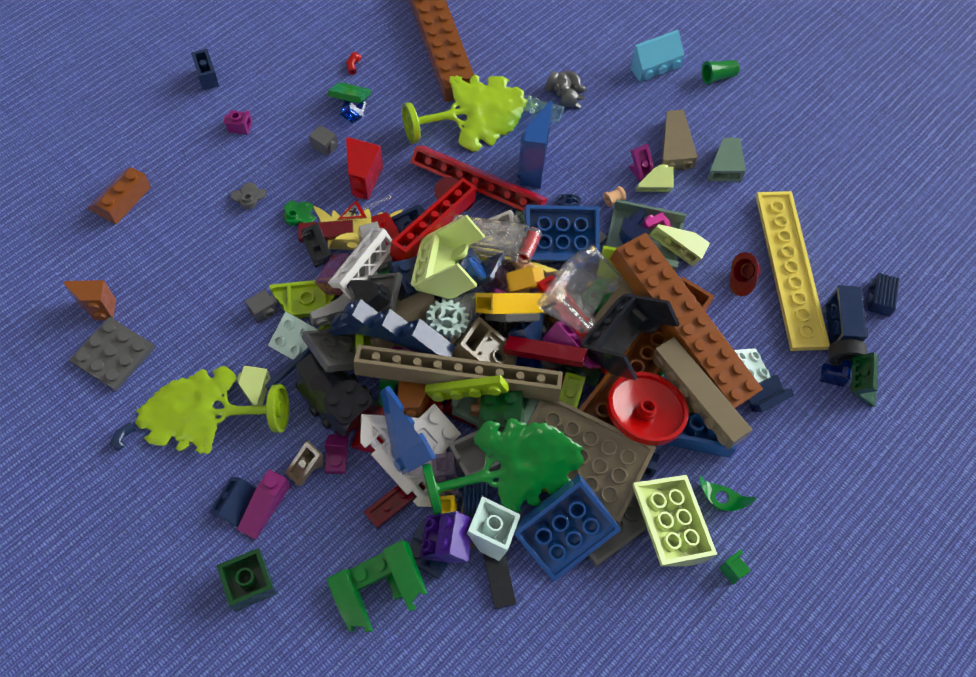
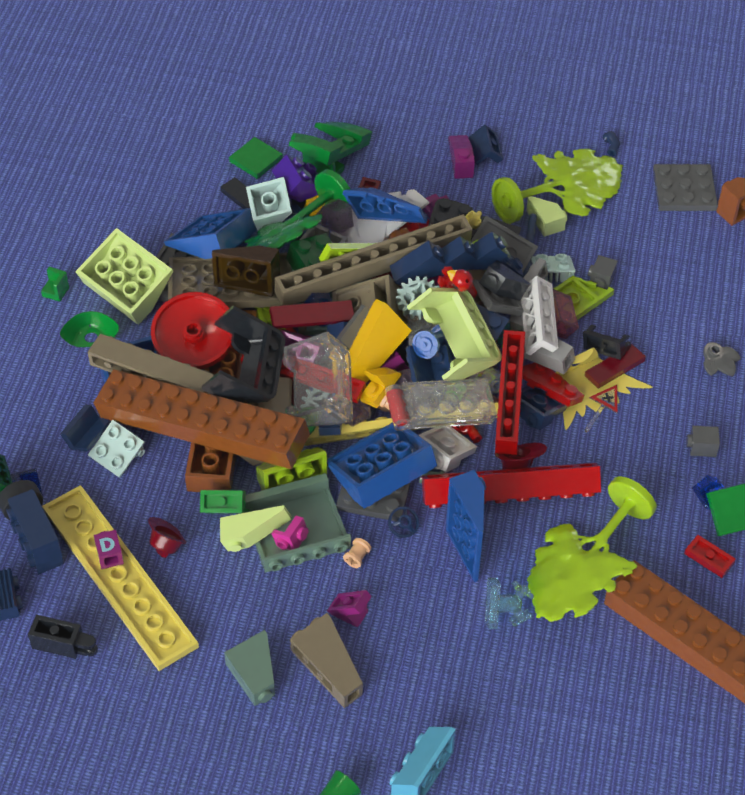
camera: 150 degrees right, 10 degrees down
(246, 580) = (427, 104): dark green brick -> none
(298, 213) = (657, 370): green plate -> none
(304, 463) = (453, 188): dark tan slope -> none
(343, 377) = (474, 219): none -> light yellow plate
(363, 166) = (637, 427): red slope -> none
(390, 80) = (709, 556): none -> red plate
(415, 295) = (458, 279): none -> red animal
(456, 626) = (255, 157): none -> green tile
(565, 421) = (246, 269): none -> dark brown slope
(567, 85) = (514, 659): dark grey animal -> none
(631, 227) = (312, 509): clear blue brick -> none
(658, 180) = (321, 591): yellowish green slope -> none
(693, 266) = (223, 502): none -> green panel
(796, 276) = (108, 549): none -> magenta brick
(852, 238) = (61, 638): none -> black hinge

